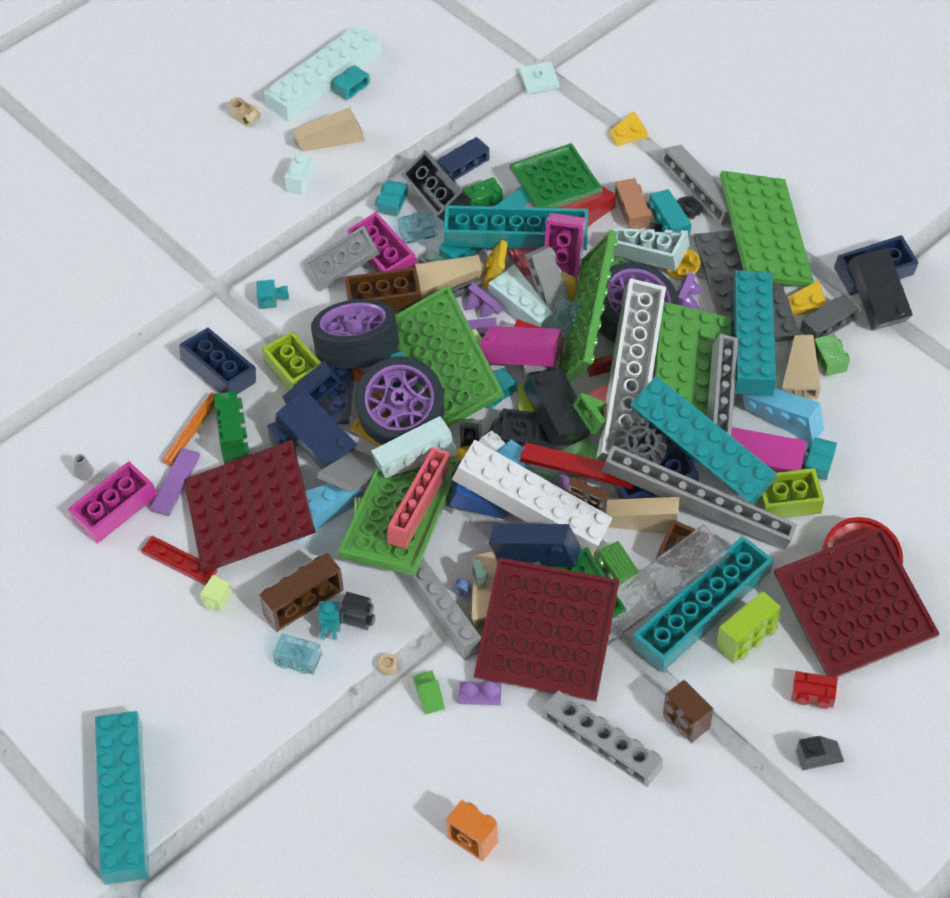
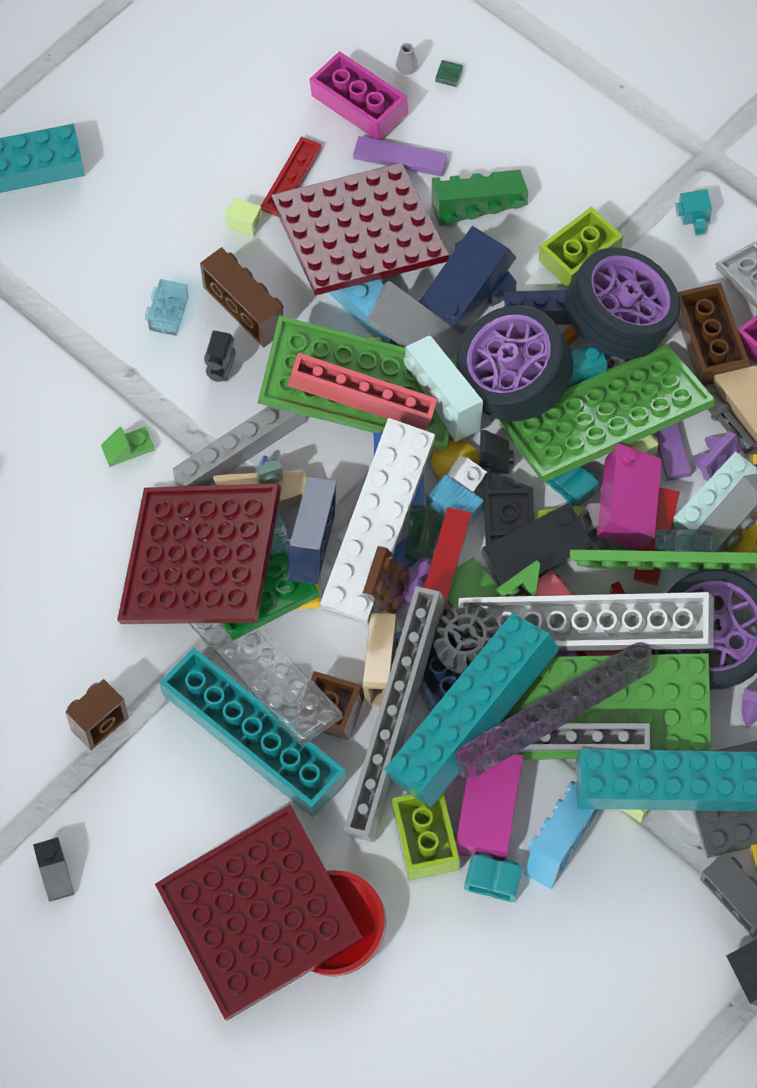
camera: 85 degrees right, 10 degrees up
(100, 443) = (449, 73): none -> clear green tile
(190, 429) = (475, 158): orange axle -> none
(217, 362) = (573, 168): dark blue brick -> none
(317, 383) = (537, 270): dark blue brick -> none
(329, 618) = (215, 322): teal brick -> none
(387, 664) = (162, 401): tan tile -> none
(480, 693) = (127, 499): medium lavender tile -> none
(616, 562) = (307, 635): bright green brick -> none
(643, 771) = (98, 577): light grey brick -> none
(711, 394) = (549, 720): none -> clear purple beam
(748, 627) = (215, 782): lime brick -> none
(802, 369) = (642, 855): tan slope -> none
(814, 689) = (138, 864): red brick -> none
(831, 354) = (675, 895): bright green brick -> none

